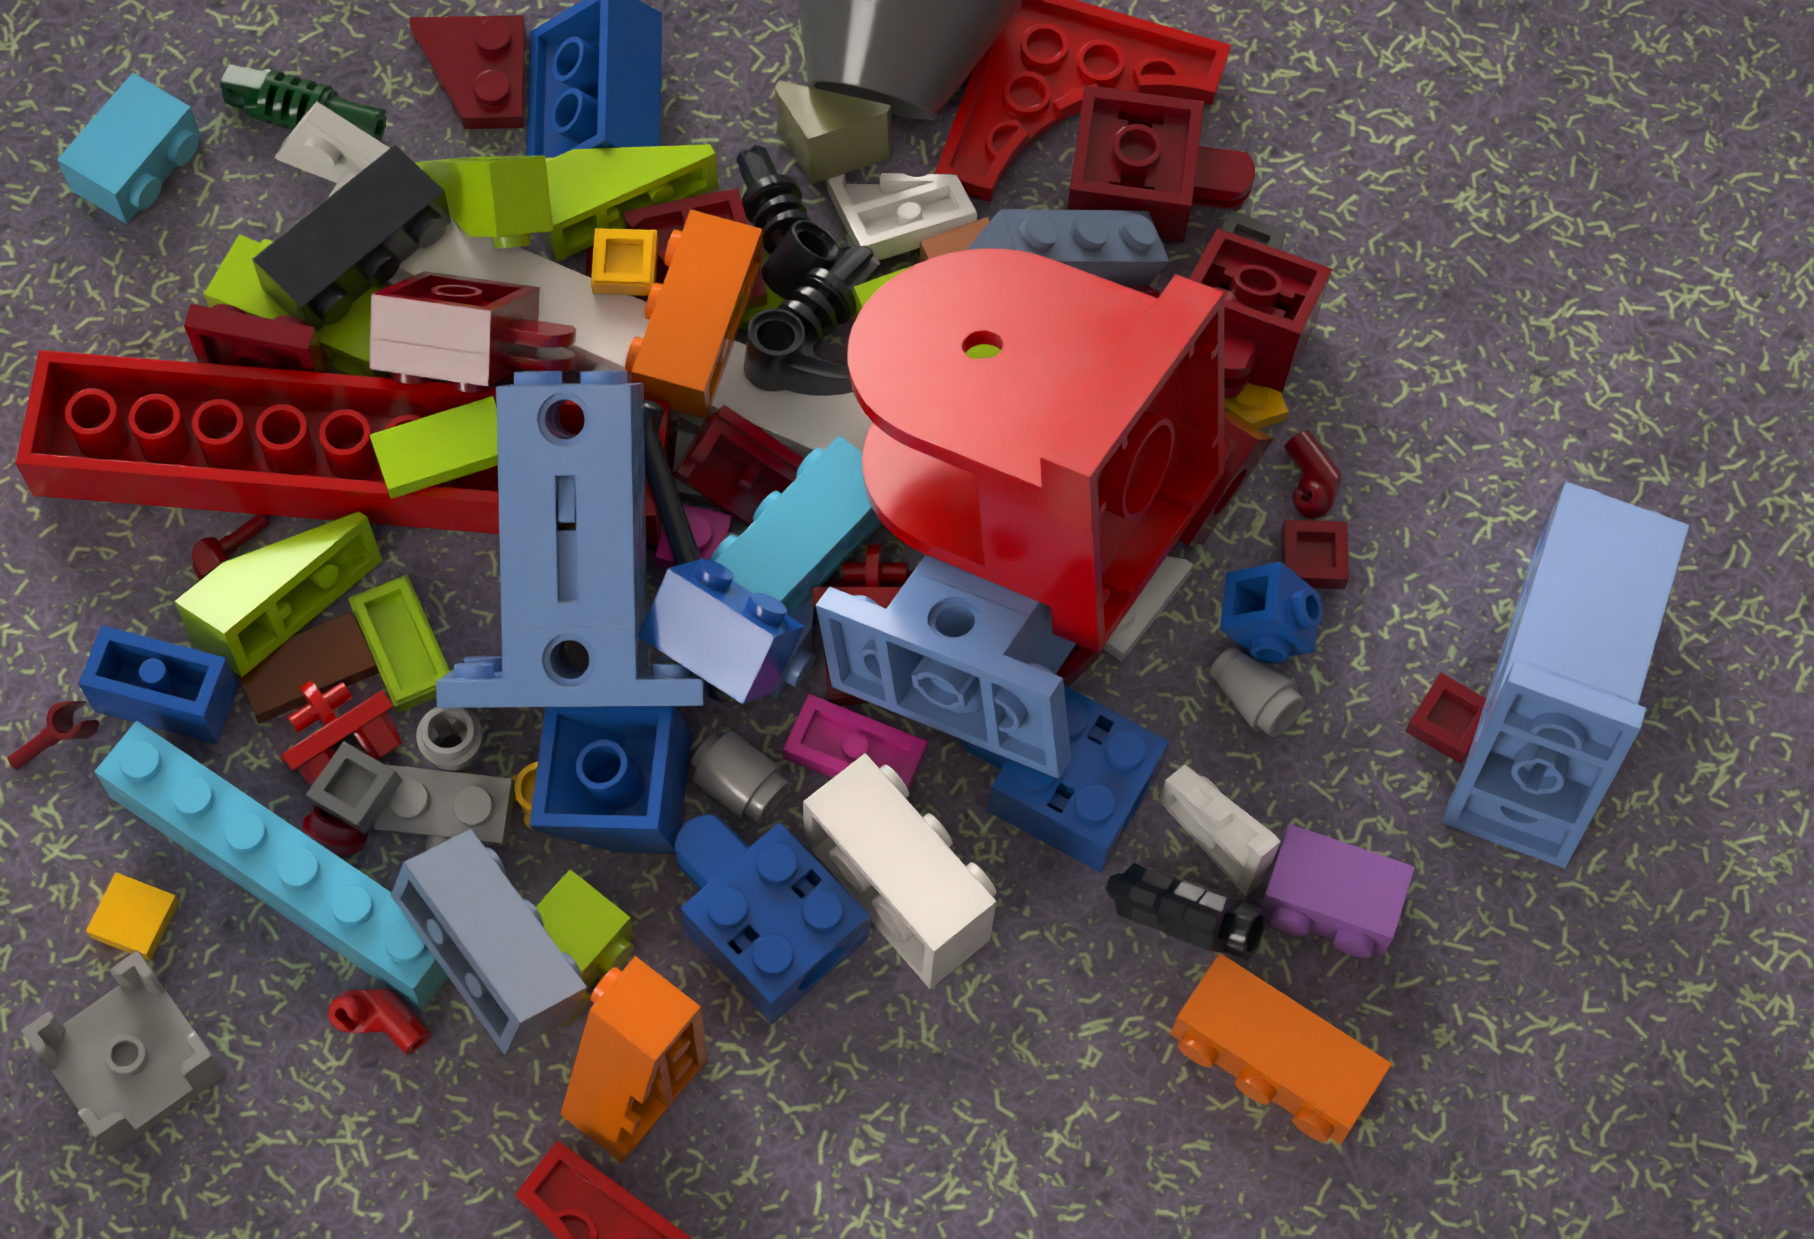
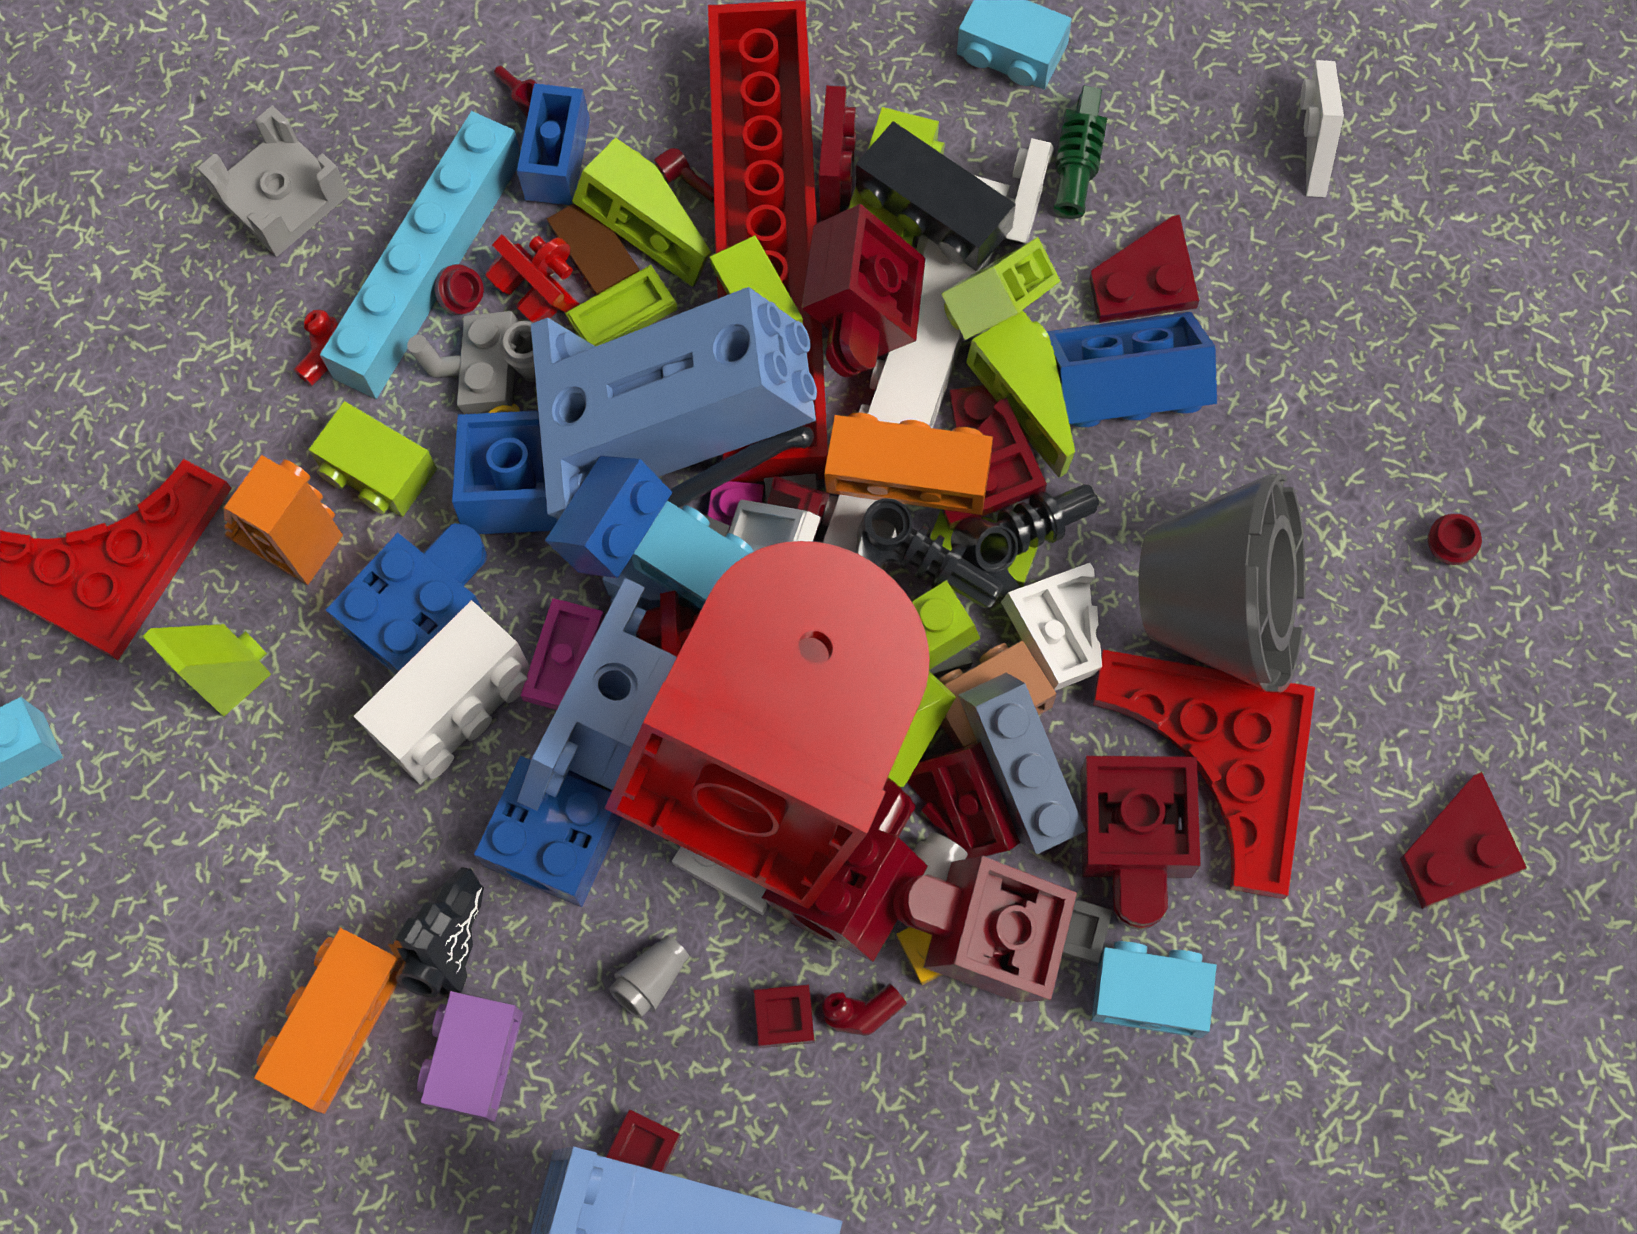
camera: 90 degrees right, 5 degrees up
(132, 916) = (386, 171): yellow tile -> none
(354, 787) = (481, 289): dark grey plate -> none
(488, 940) = (349, 394): sand blue brick -> none
(624, 261) = (956, 403): yellow tile -> none
(739, 776) = (527, 570): light grey brick -> none
(754, 469) = (771, 524): none -> white tile
(821, 1151) = (212, 661): none -> lime slope
(832, 130) = (1115, 553): olive slope -> none
(1221, 828) = (532, 935): white wing -> none
(1271, 612) = (709, 988): blue brick -> none
(1321, 185) = (1154, 990): none -> medium azure brick

